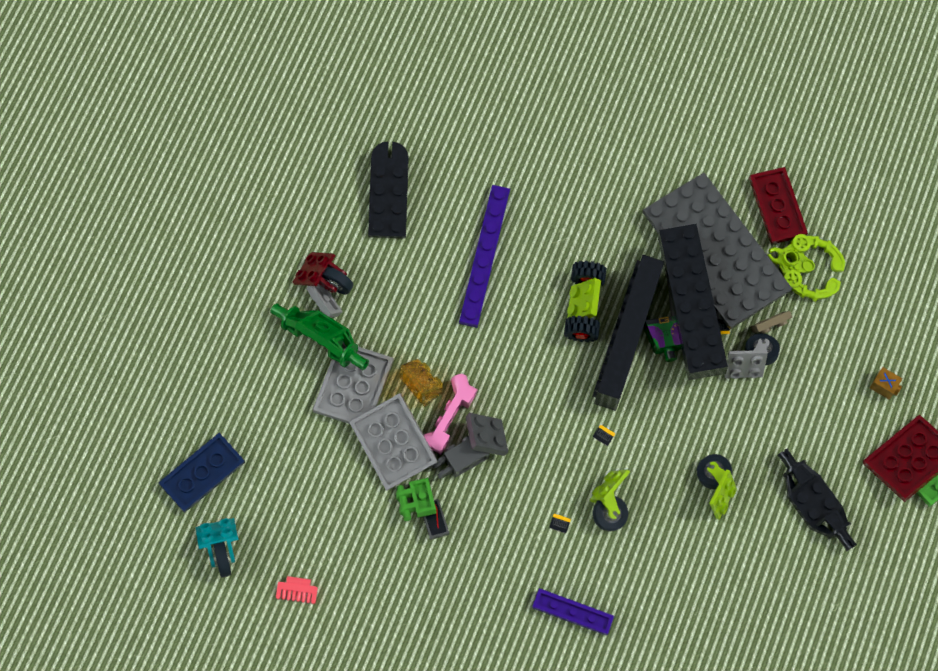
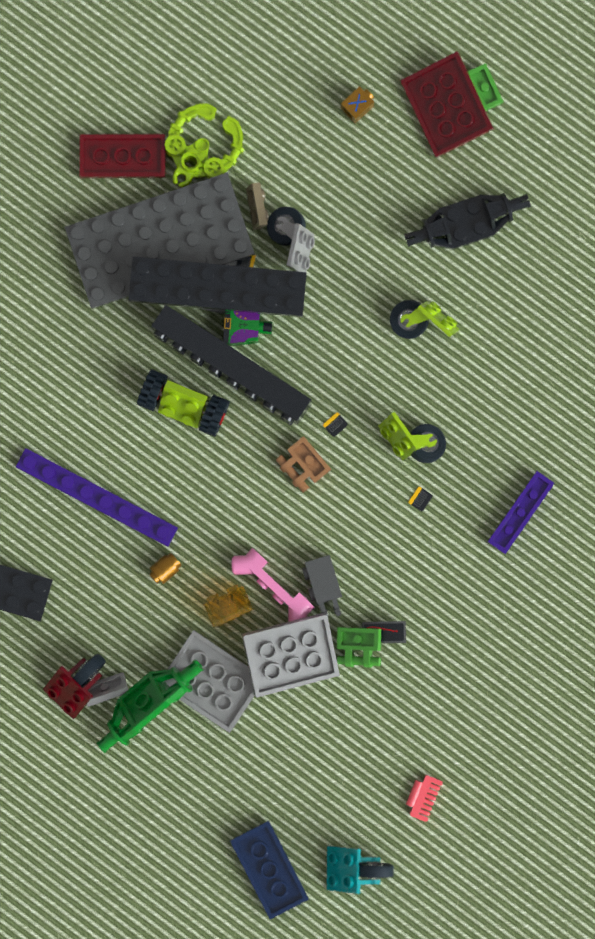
camera: 65 degrees left, 15 degrees up
(439, 323) = (164, 568): none -> pearl gold brick
(486, 434) = (307, 552): dark grey plate -> none
(566, 418) = (309, 461): none -> medium nougat plate

